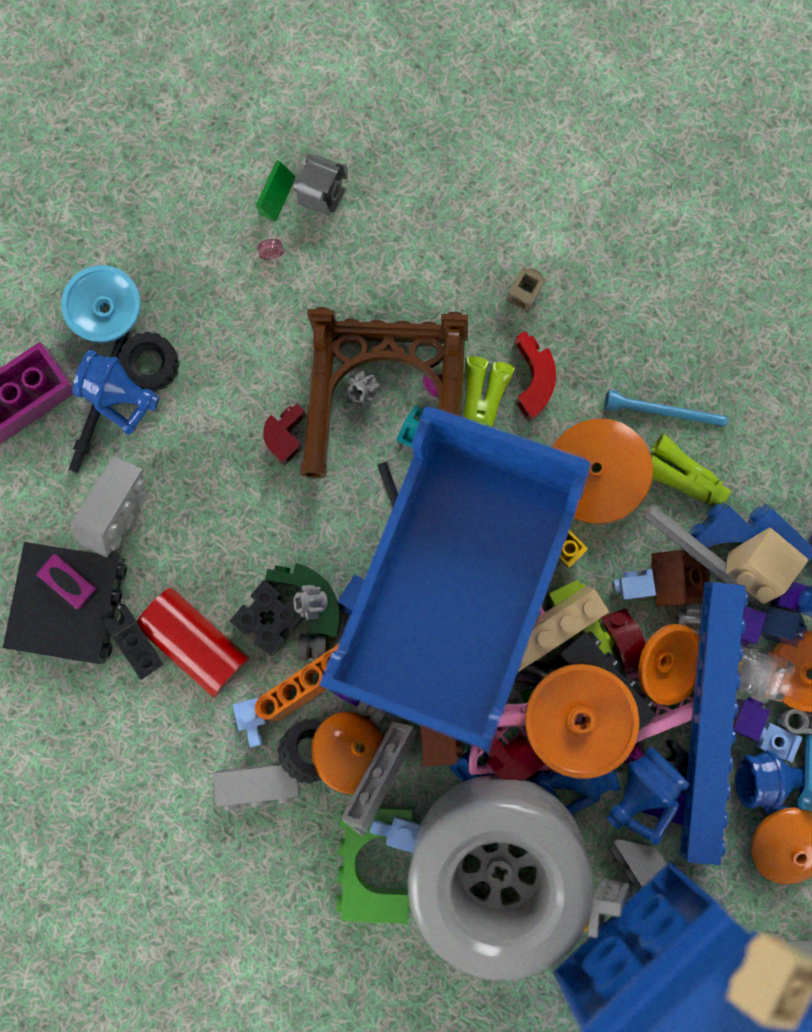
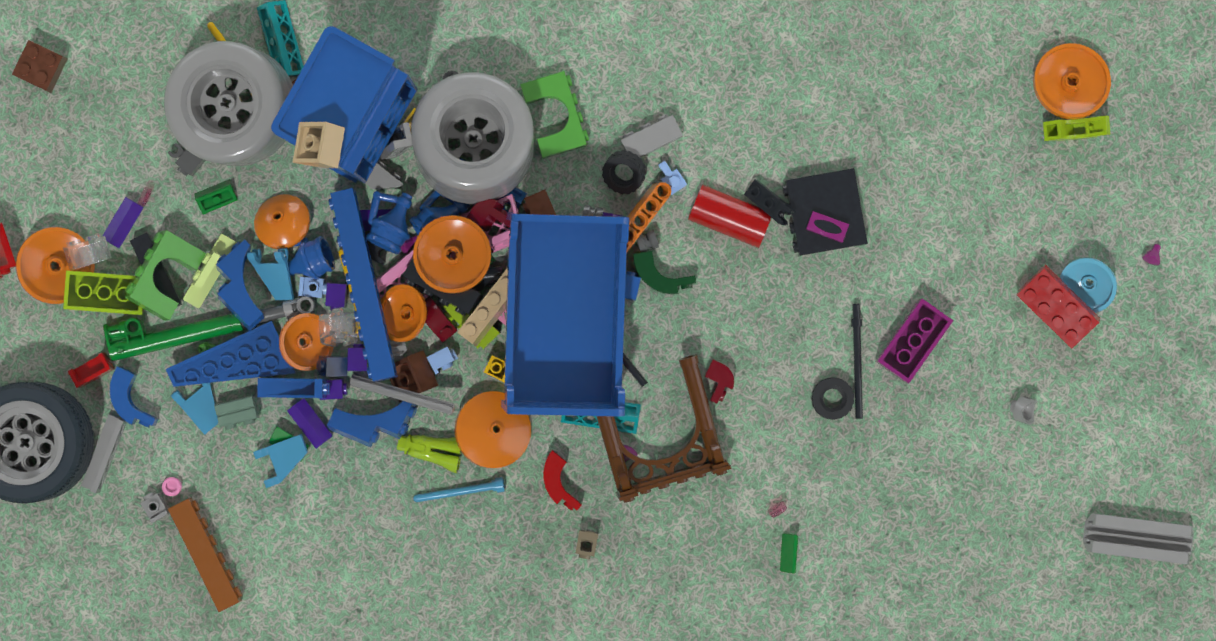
camera: 170 degrees right, 5 degrees up
(93, 290) = (893, 430): medium azure dish -> none
(106, 384) = (852, 370): blue piece -> none
(110, 507) = (815, 286): light grey brick -> none
(251, 618) = (688, 261): black brick -> none
(310, 602) = (658, 270): light grey gear -> none
(320, 184) = (757, 566): dark grey brick -> none
(336, 752) = (600, 172): orange dish -> none
(363, 388) = (675, 431): light grey gear -> none
(378, 777) = (571, 172): light grey fence -> none
(400, 833) = (544, 140): light blue plate -> none
(499, 377) = (589, 440): lime piece -> none
(765, 565) = (360, 401): tan slope -> none

